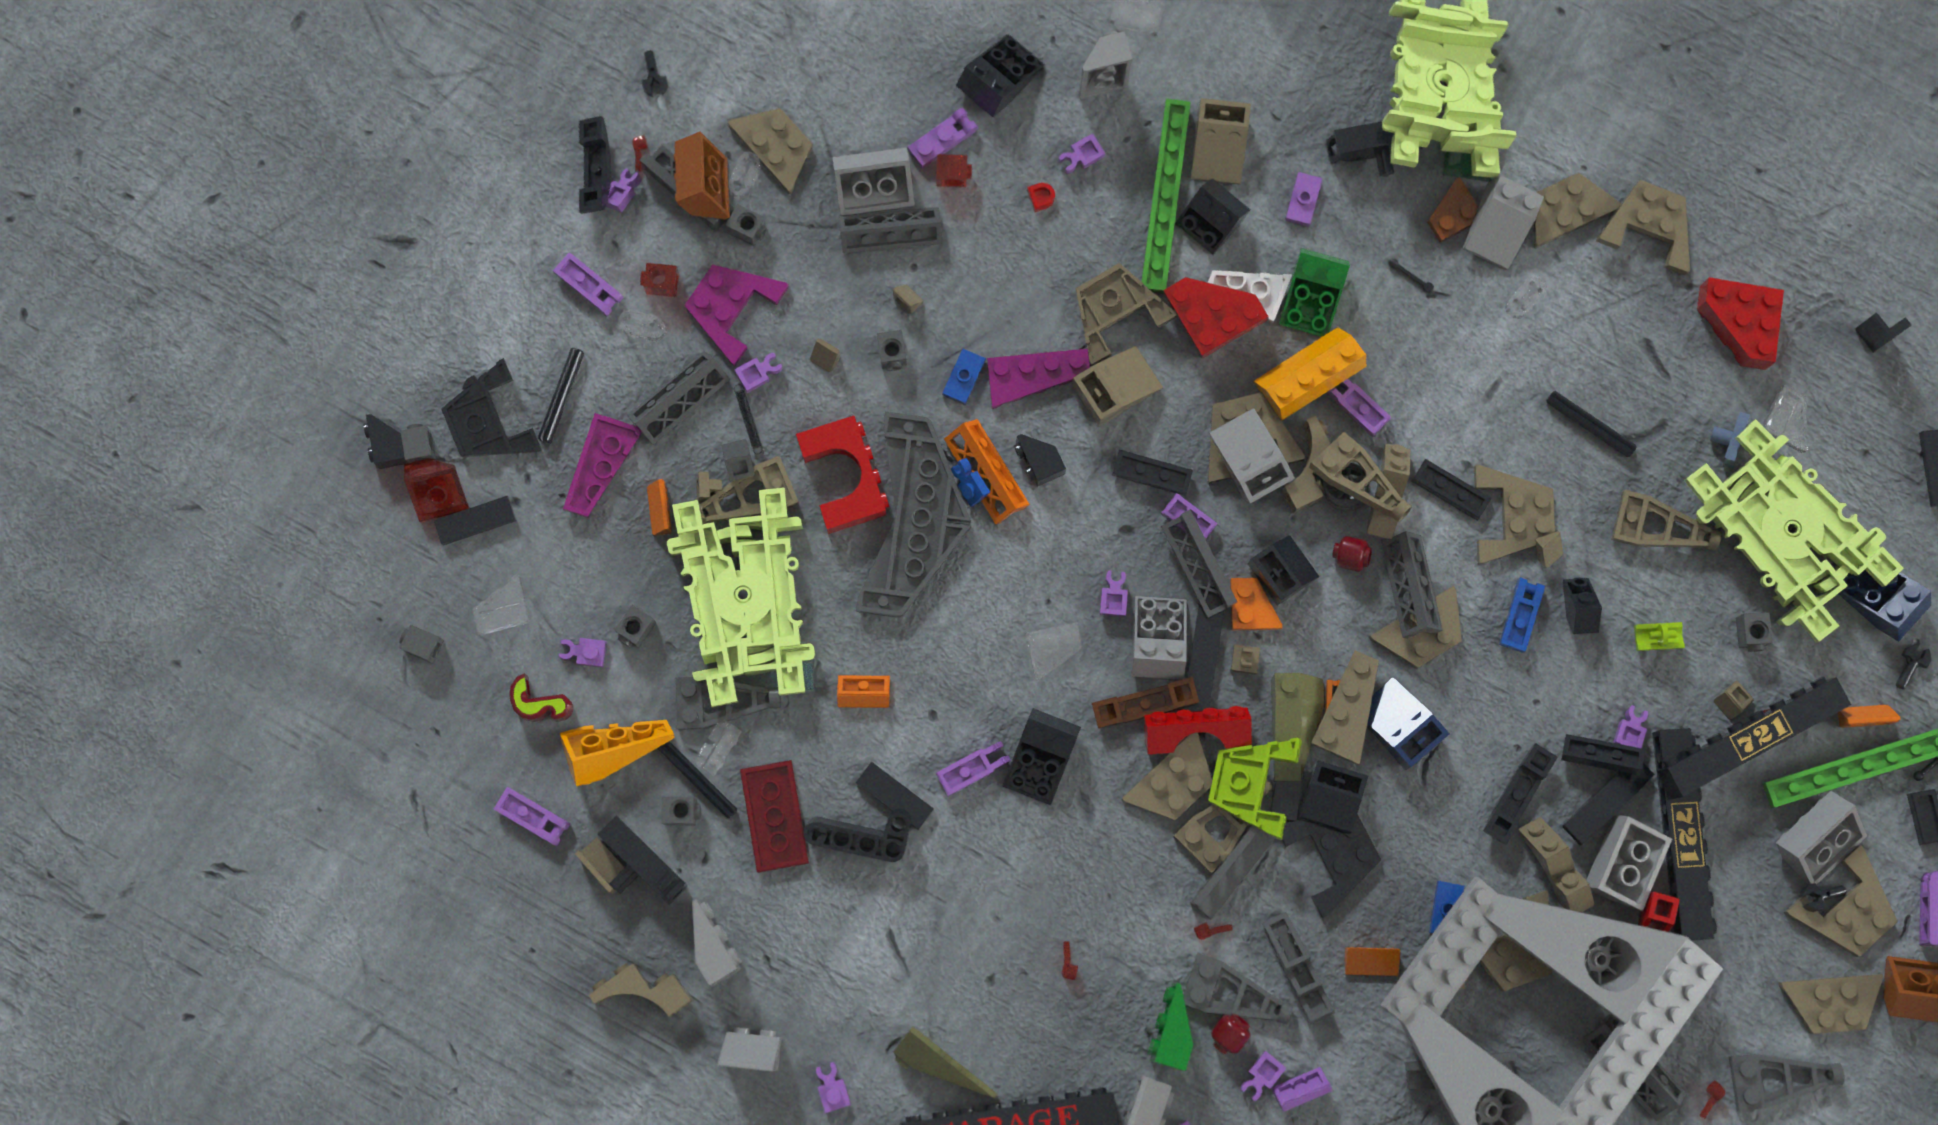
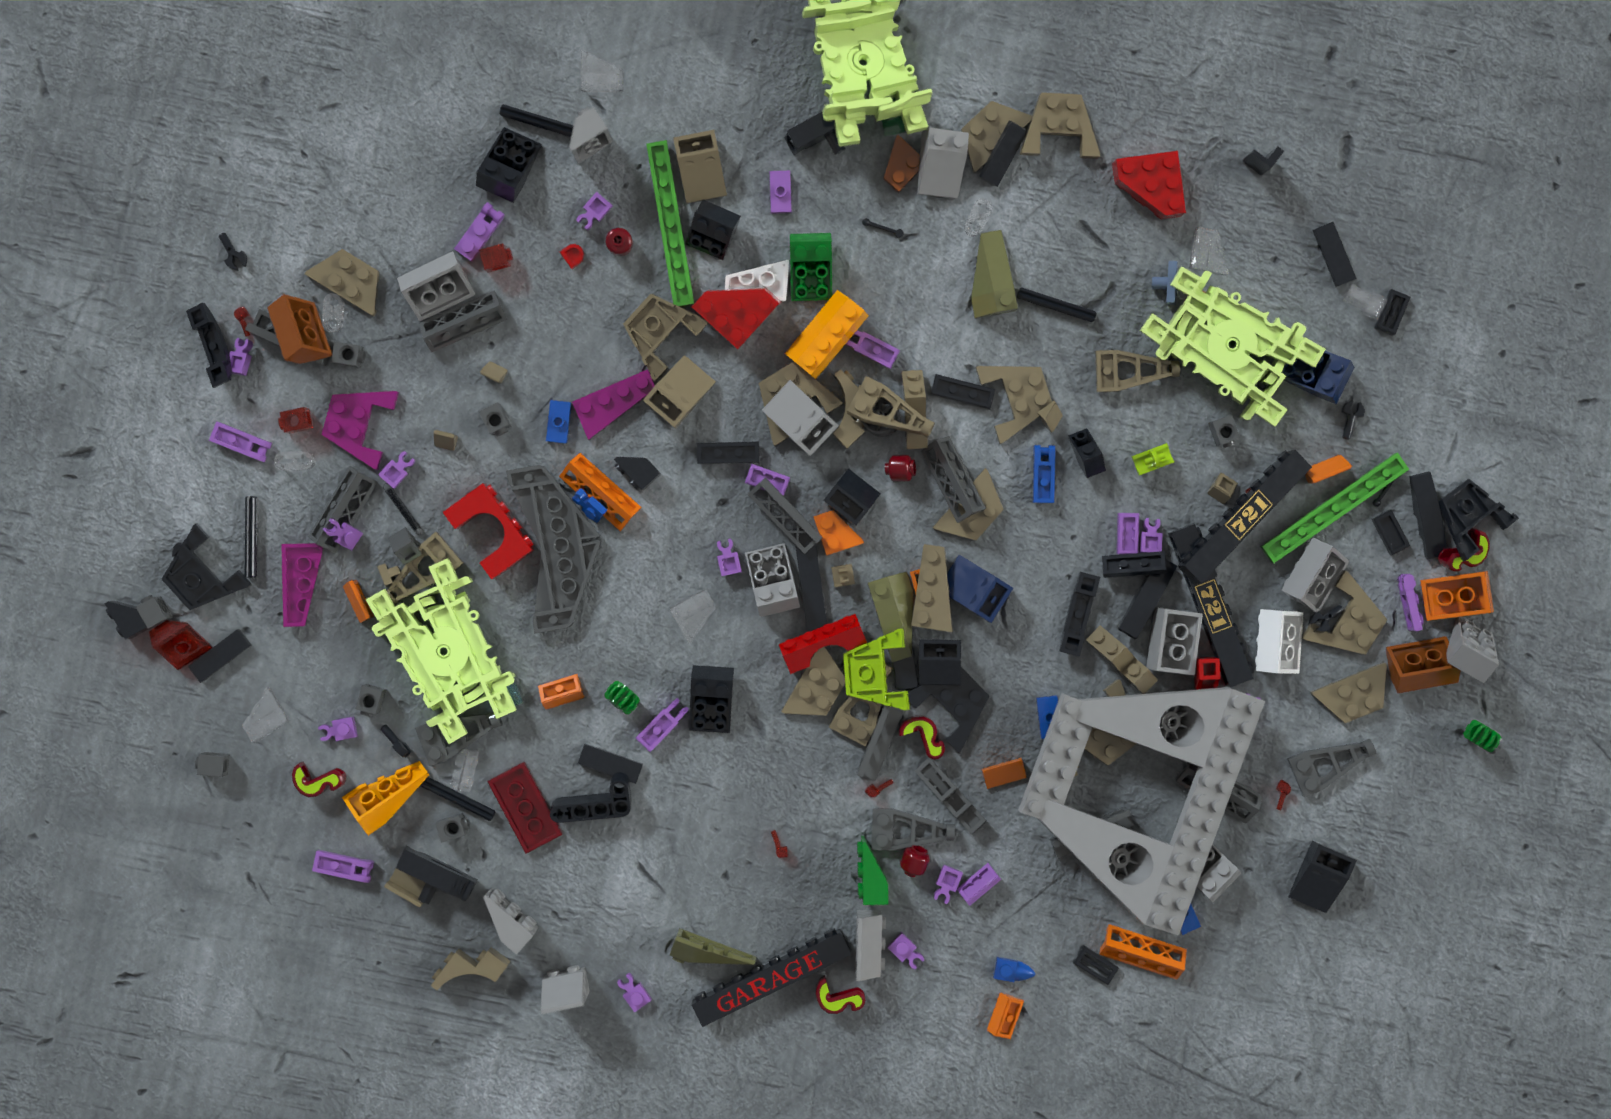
camera: 15 degrees left, 10 degrees up
(648, 689) = (400, 747): none -> black bar
(672, 425) = (344, 535): none -> medium lavender plate
(936, 718) = (622, 697): none -> green gear
(1048, 37) = (536, 120): none -> black axle
(1100, 195) = (619, 249): none -> dark red head
(1136, 705) = (776, 634): reddish brown slope -> none
(1292, 881) = (928, 734): none -> animal
(1524, 373) = (993, 284): none -> olive wedge
(1576, 234) = (1003, 153): none -> black tile
(1604, 715) = (1127, 533): none -> medium lavender plate
(1757, 905) = (1279, 641): none -> white slope

